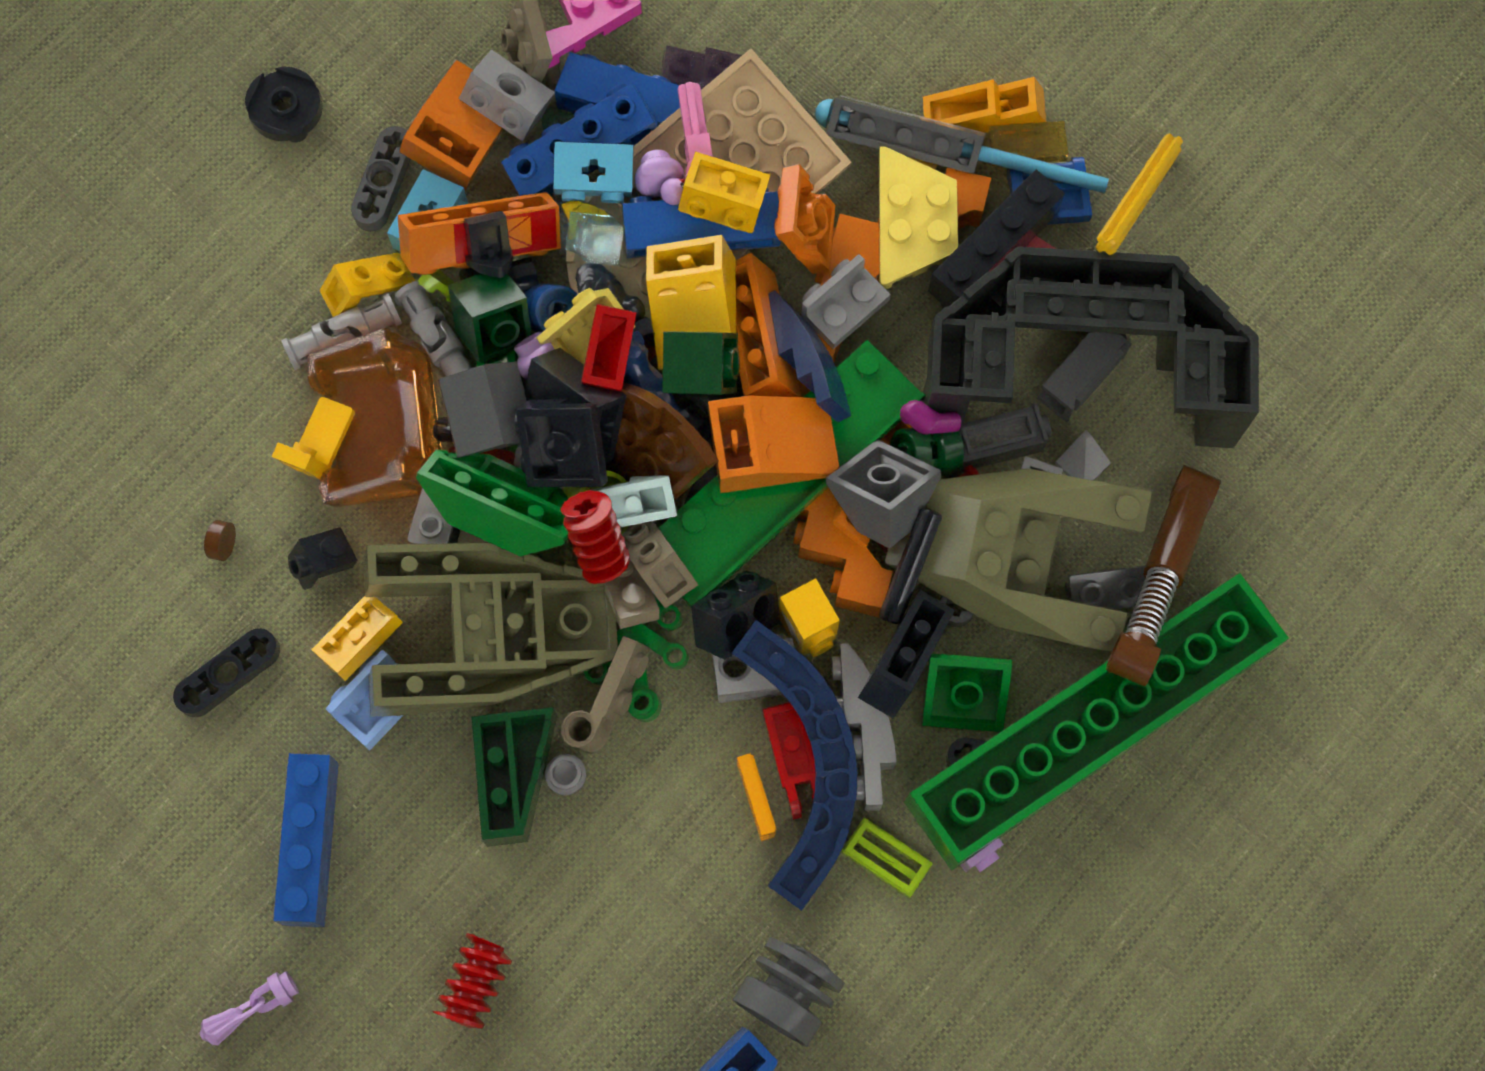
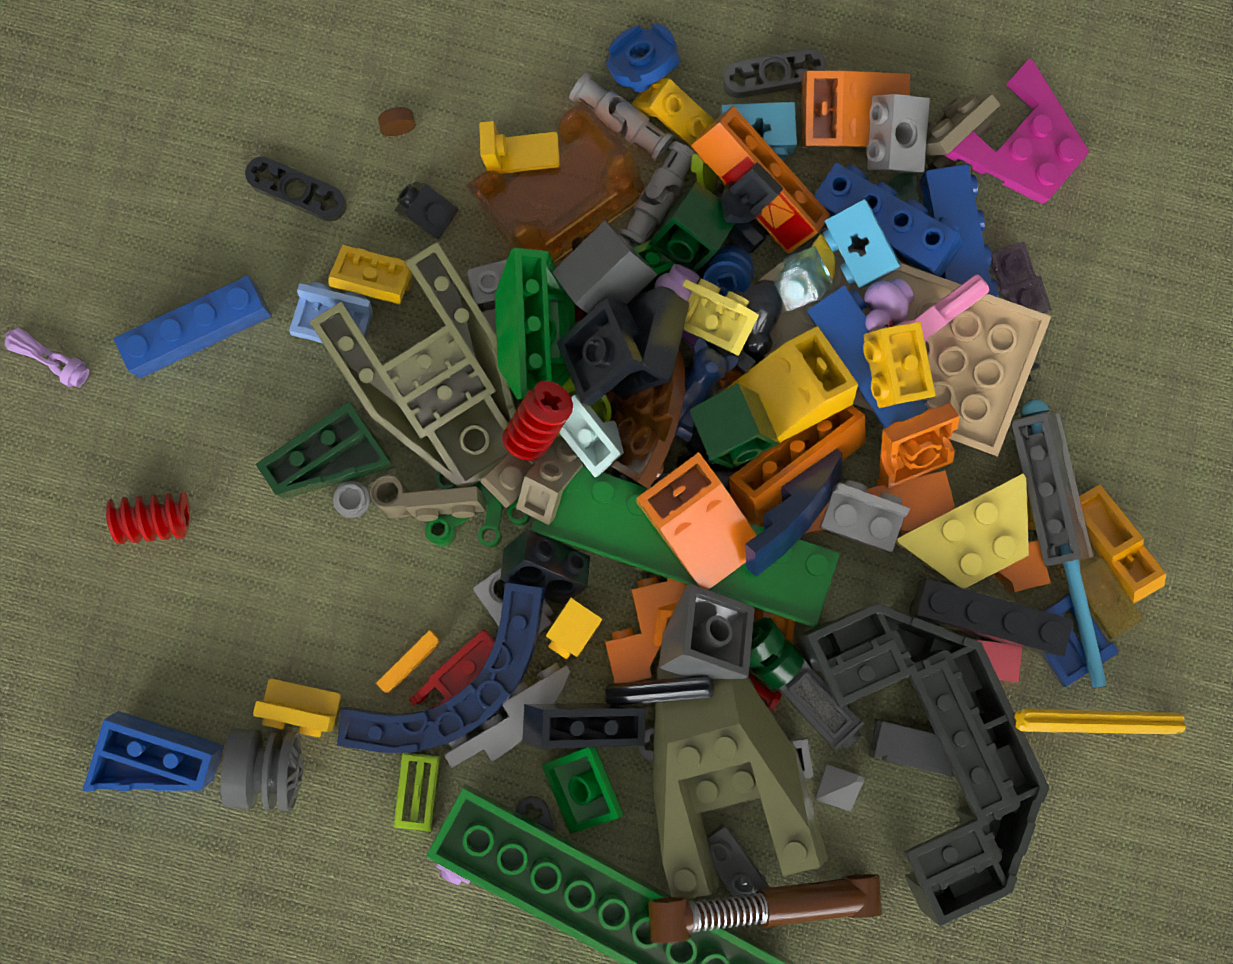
camera: 60 degrees right, 10 degrees up
(312, 287) = (659, 58): none -> blue plate
(608, 348) = (702, 344): red slope -> none
(738, 931) = (298, 705): none -> yellow bracket
(927, 420) = (790, 642): magenta arm -> none

